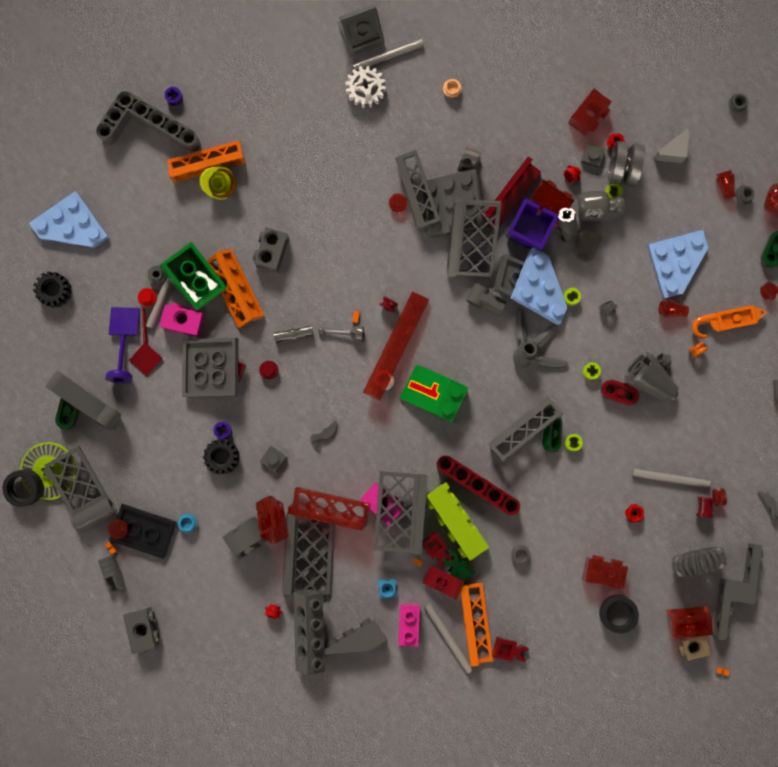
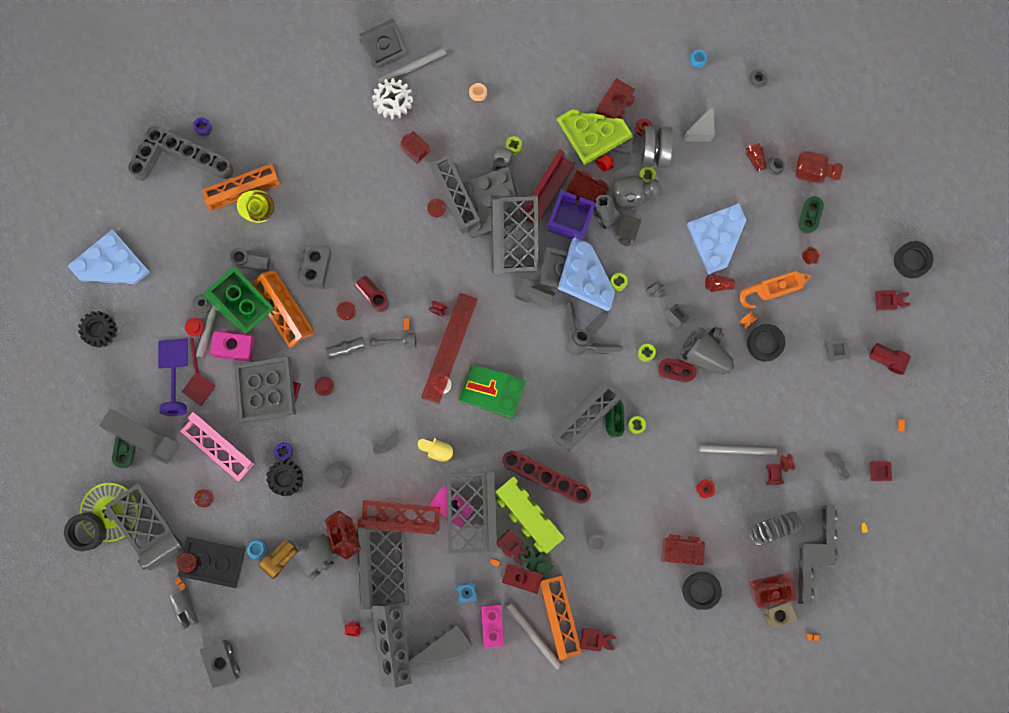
camera: 15 degrees left, 5 degrees down
(145, 471) = (208, 502): none -> clear red bush
(160, 412) = (218, 439): none -> bright pink fence
(203, 538) = (275, 563): none -> pearl gold piece
(210, 236) = (252, 260): none -> dark grey piece
(297, 297) = (346, 310): none -> clear red plate
(324, 282) = (371, 293): none -> dark red piece
(373, 446) = (437, 449): none -> light yellow arm
(382, 138) = (414, 147): none -> clear red brick
(484, 141) = (515, 140): none -> lime bush
(563, 143) = (593, 133): none -> lime plate
(626, 337) = (676, 316): none -> dark grey plate
(679, 76) = (698, 58): none -> dark azure plate
(726, 367) = (774, 331): none -> black tyre

